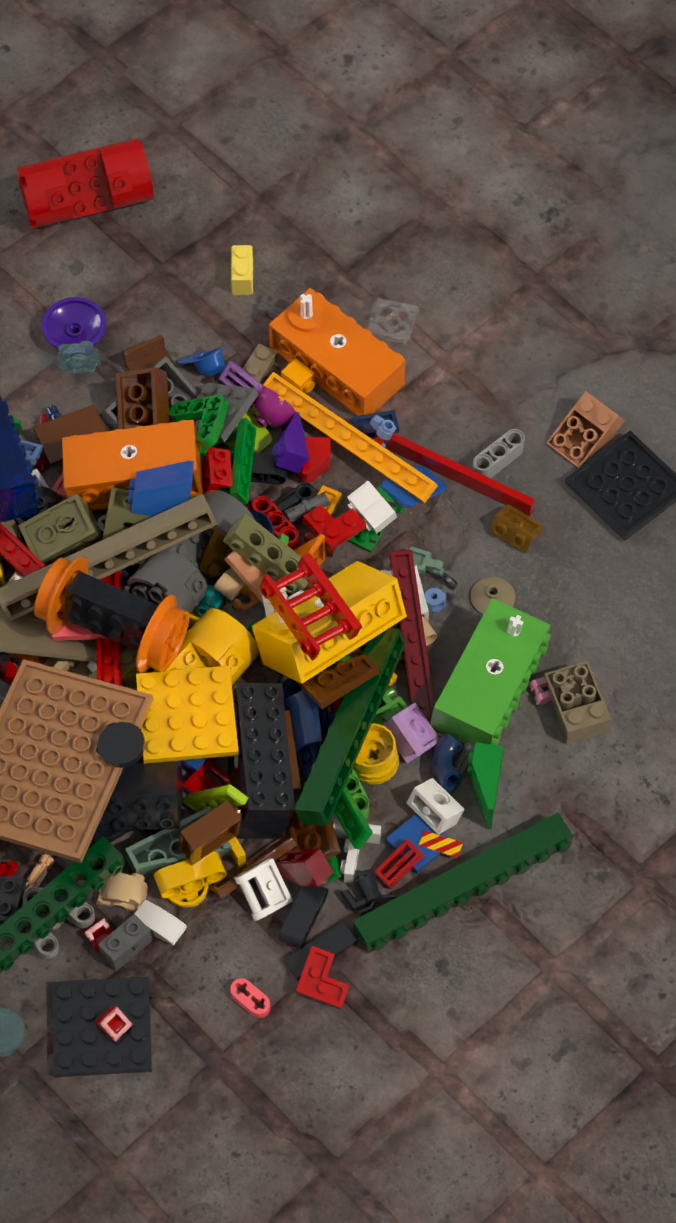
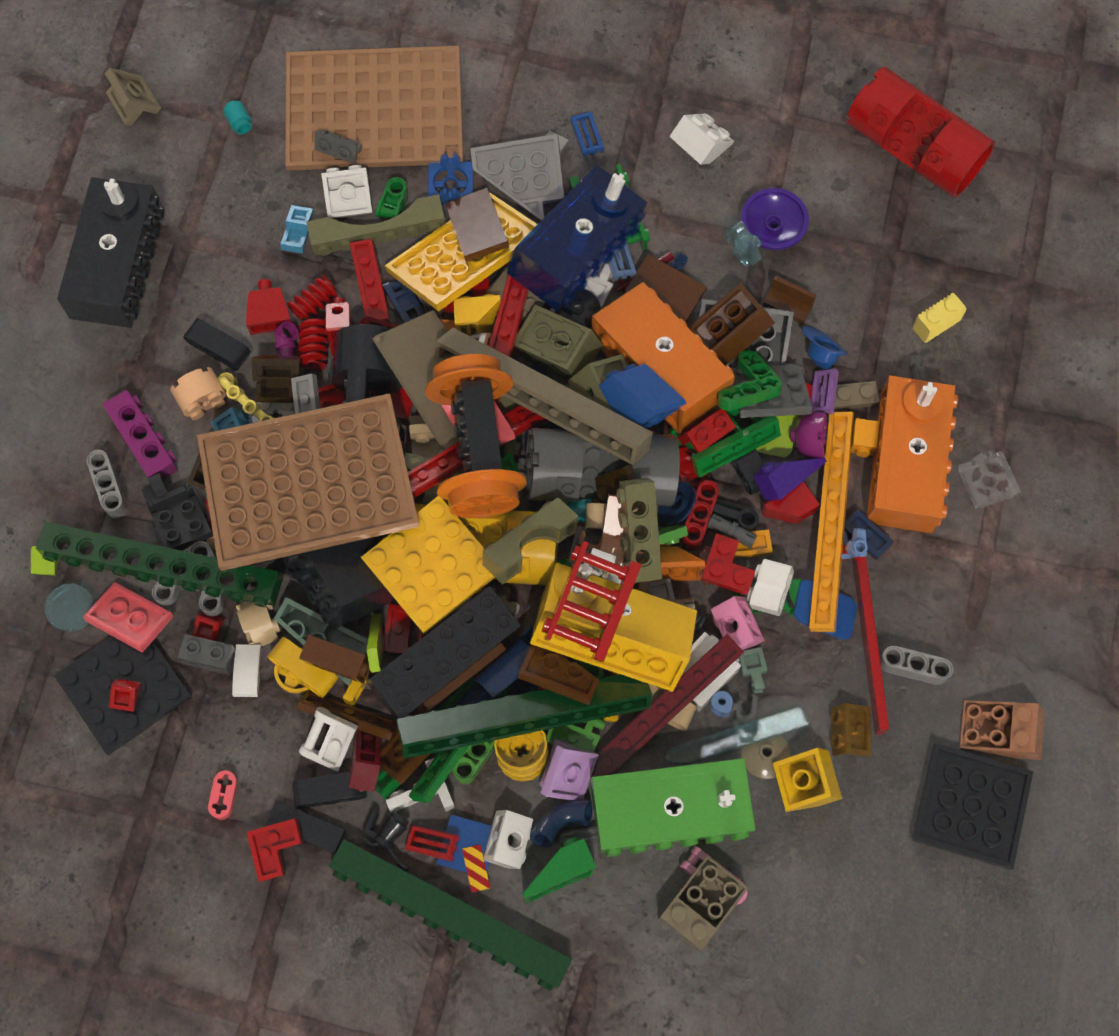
camera: 55 degrees right, 10 degrees up
(46, 985) = (128, 616): none -> coral tile
(121, 744) = (349, 529): black tile -> none
(225, 649) = (552, 522): none -> olive arch
(369, 545) = (737, 610): none -> bright pink brick
(467, 606) = (737, 737): none -> clear light blue piece
(533, 578) = (807, 780): none -> yellow slope

